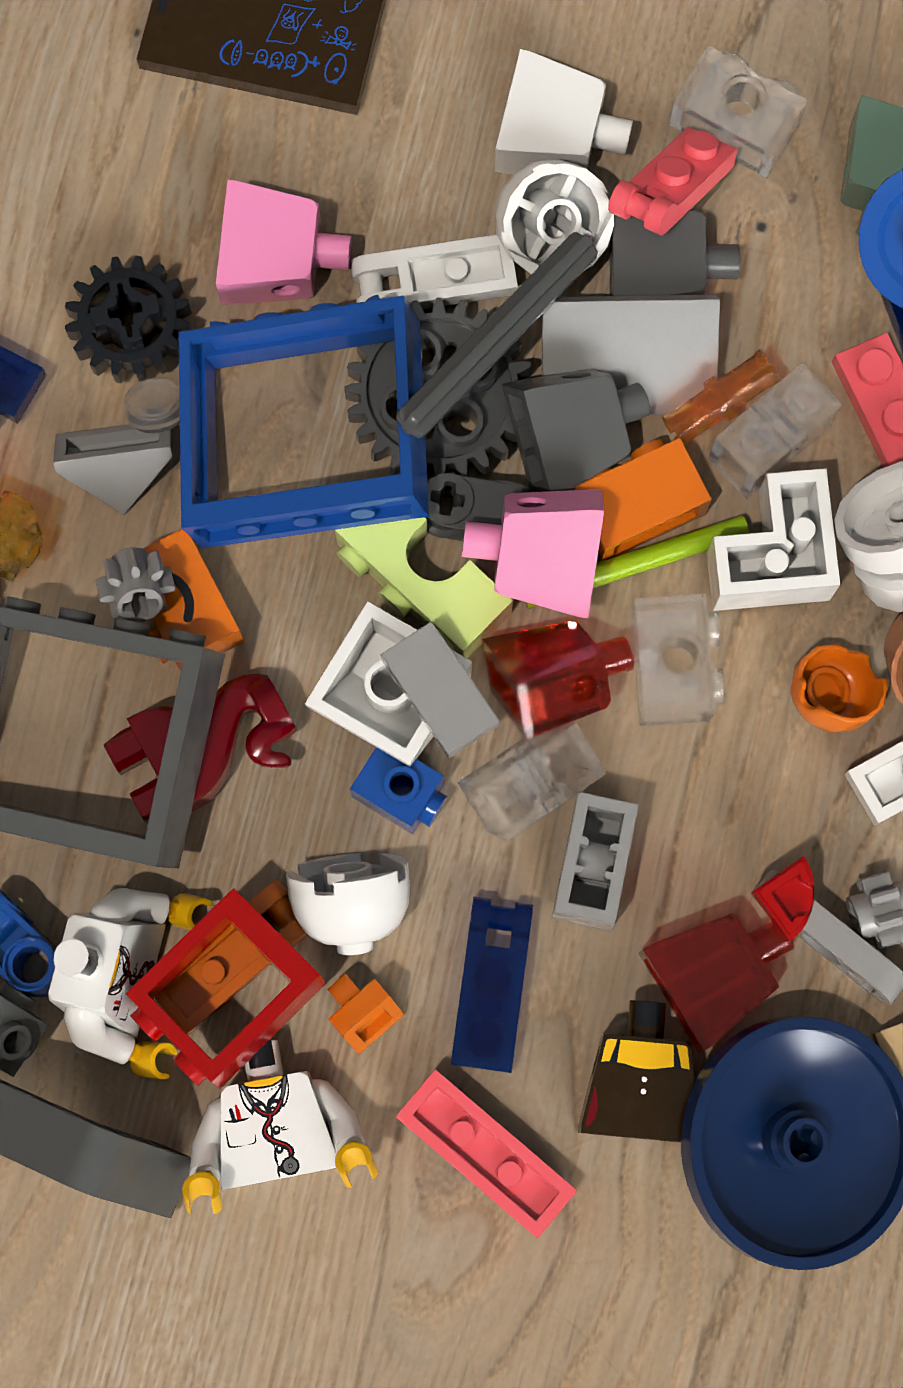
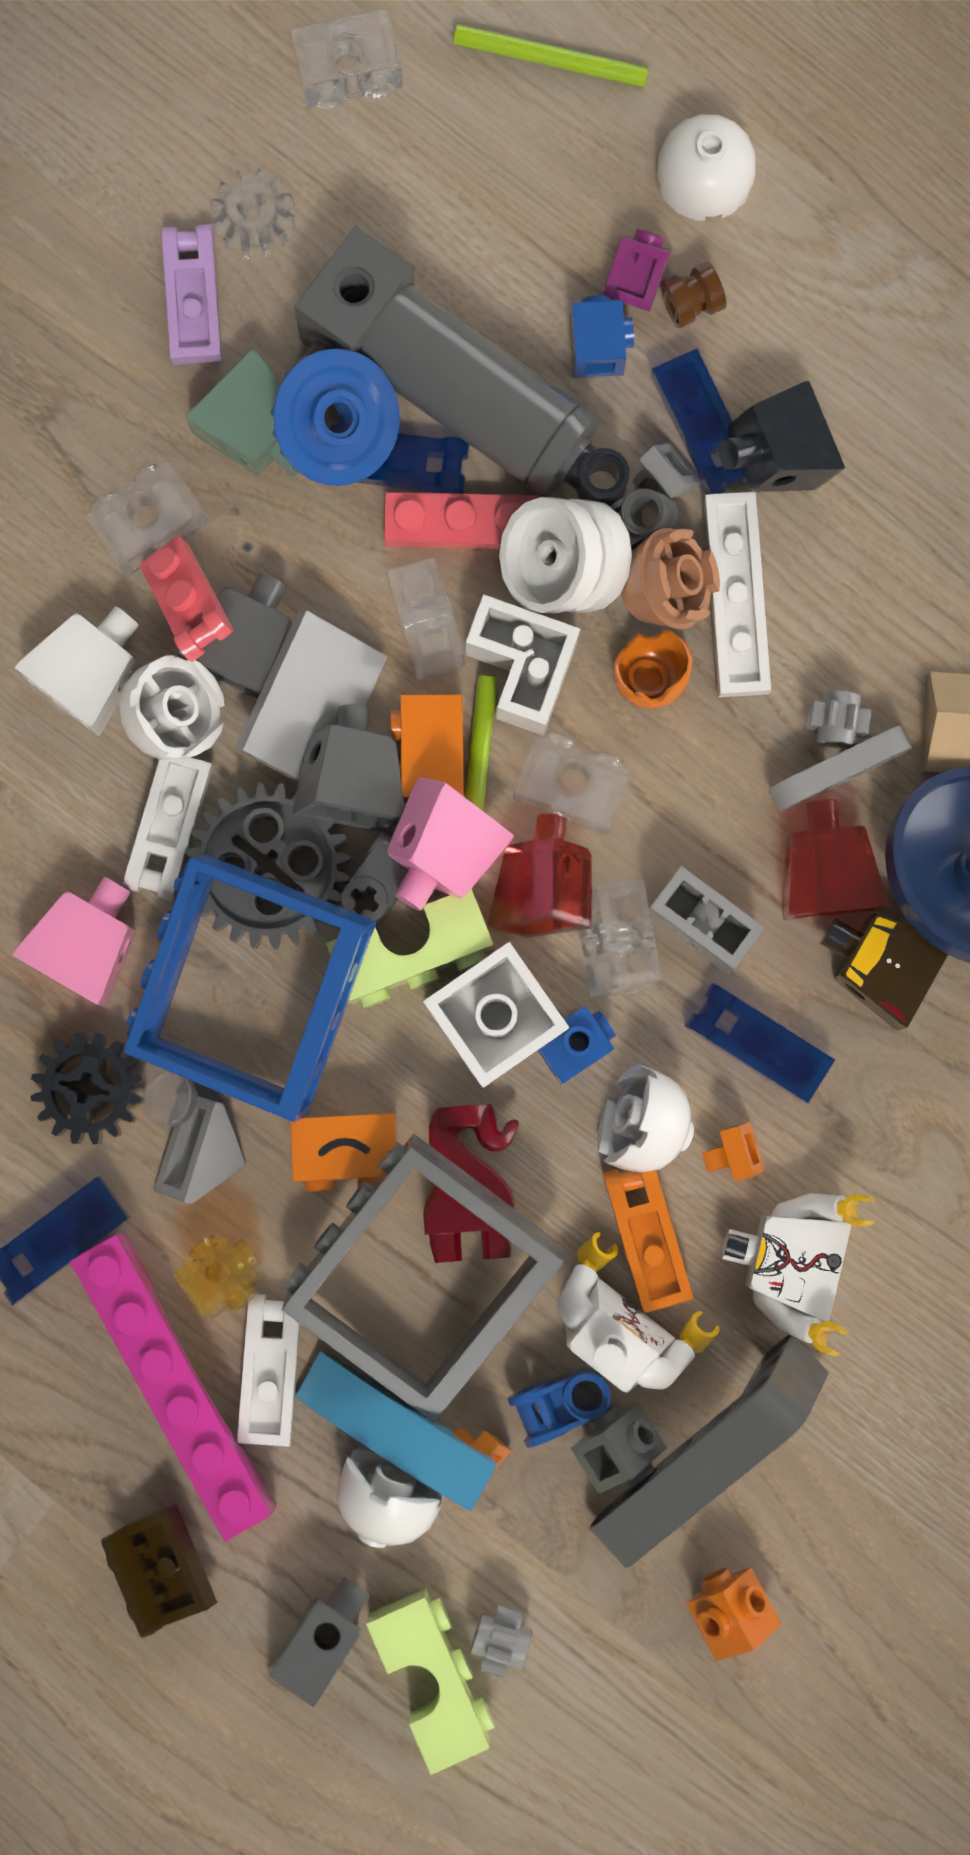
camera: 70 degrees left, 5 degrees up
(135, 584) = (325, 1179): light grey gear -> none
(192, 1059) = (680, 1315): red window -> none
(440, 689) = (523, 976): light grey tile -> none
(486, 1154) = (886, 1107): coral plate -> none
(496, 335) = (258, 799): dark grey axle -> none
(721, 398) = (382, 647): clear orange pin -> none
(788, 898) = (801, 786): red tile -> none

